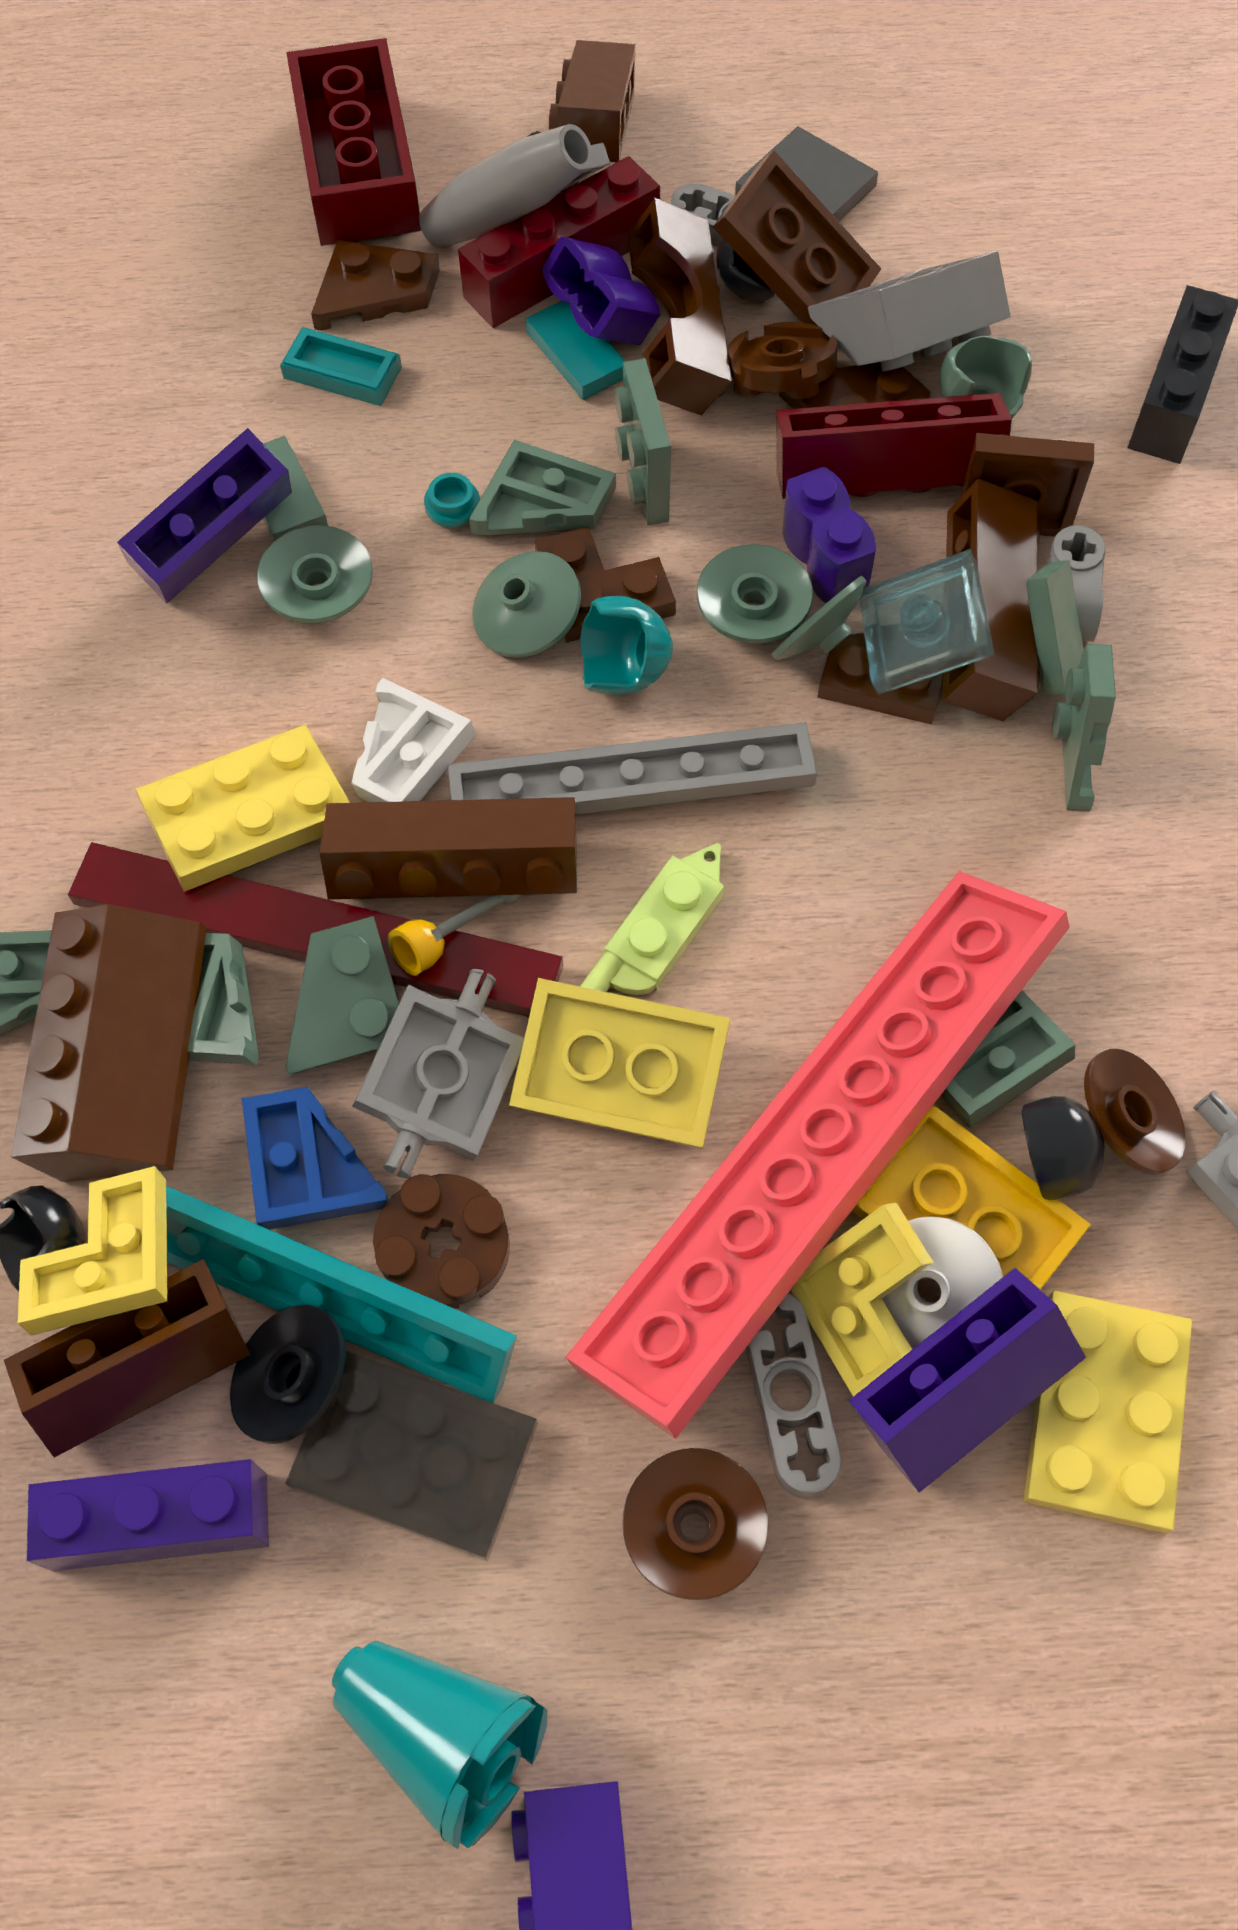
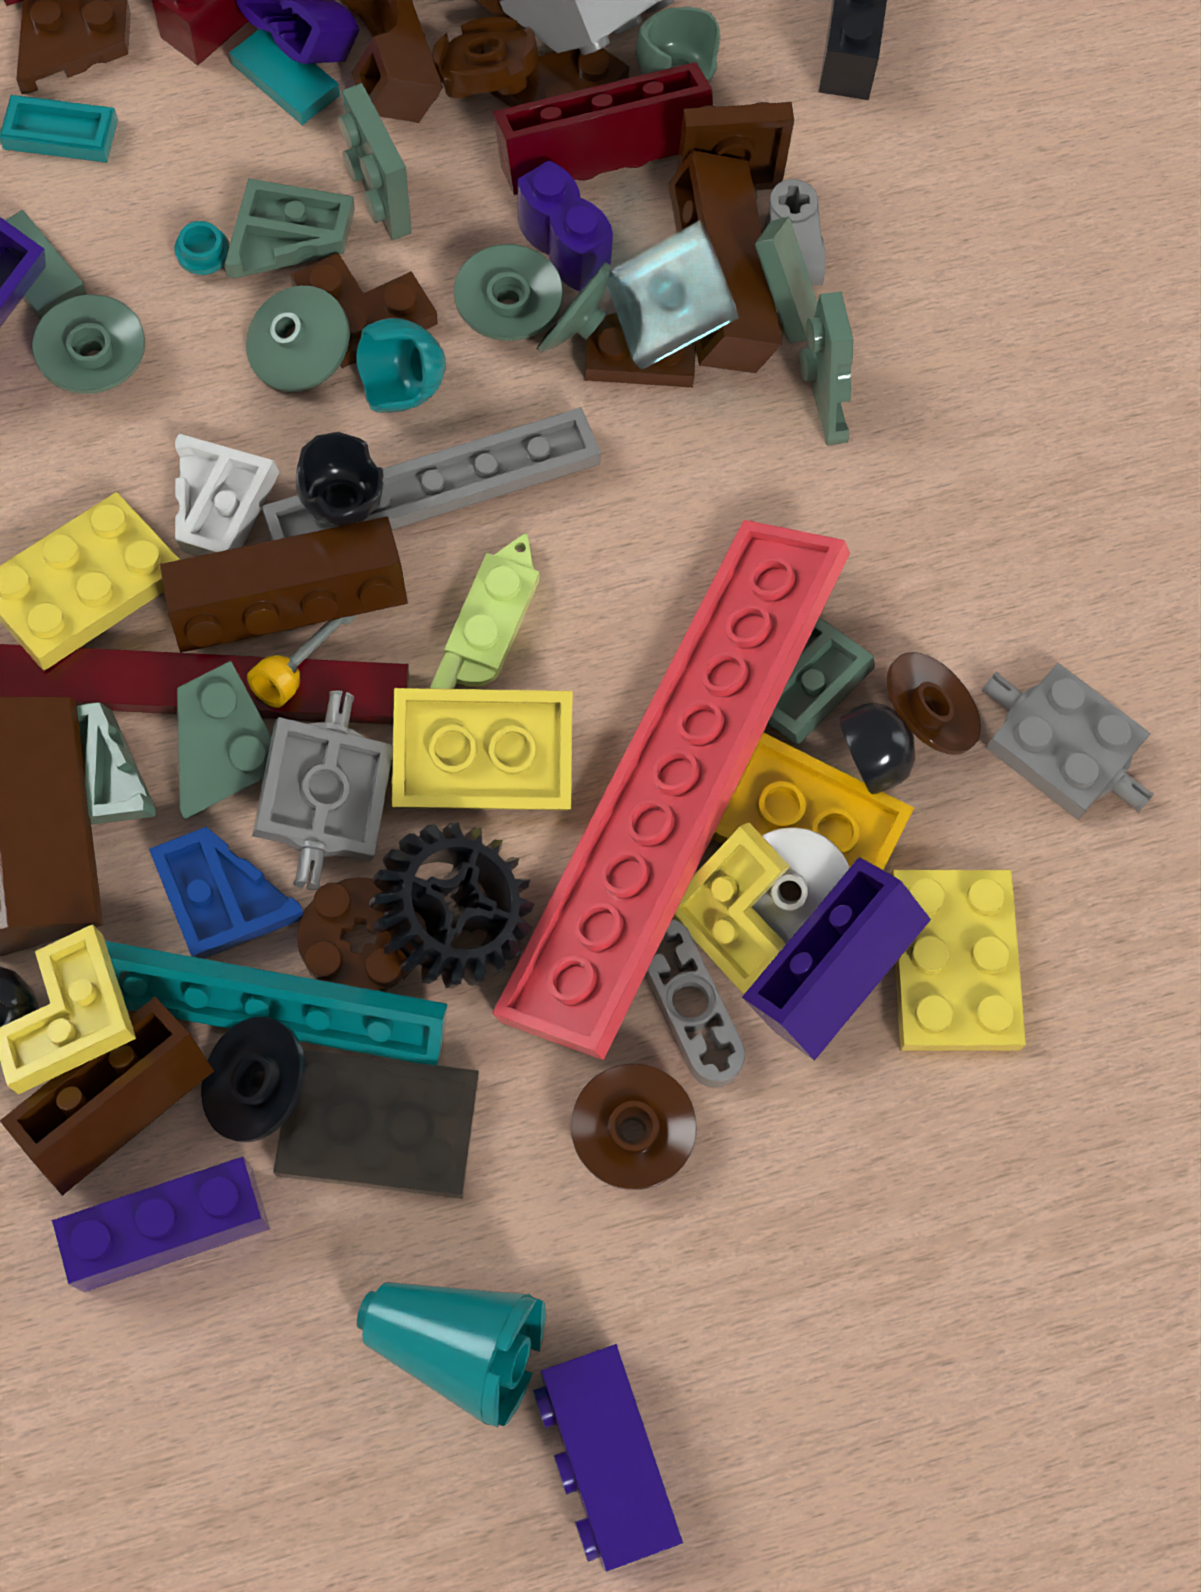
camera: 20 degrees left, 5 degrees up
(530, 749) = (338, 479): none -> black hair
(594, 1248) = (496, 914): none -> black gear

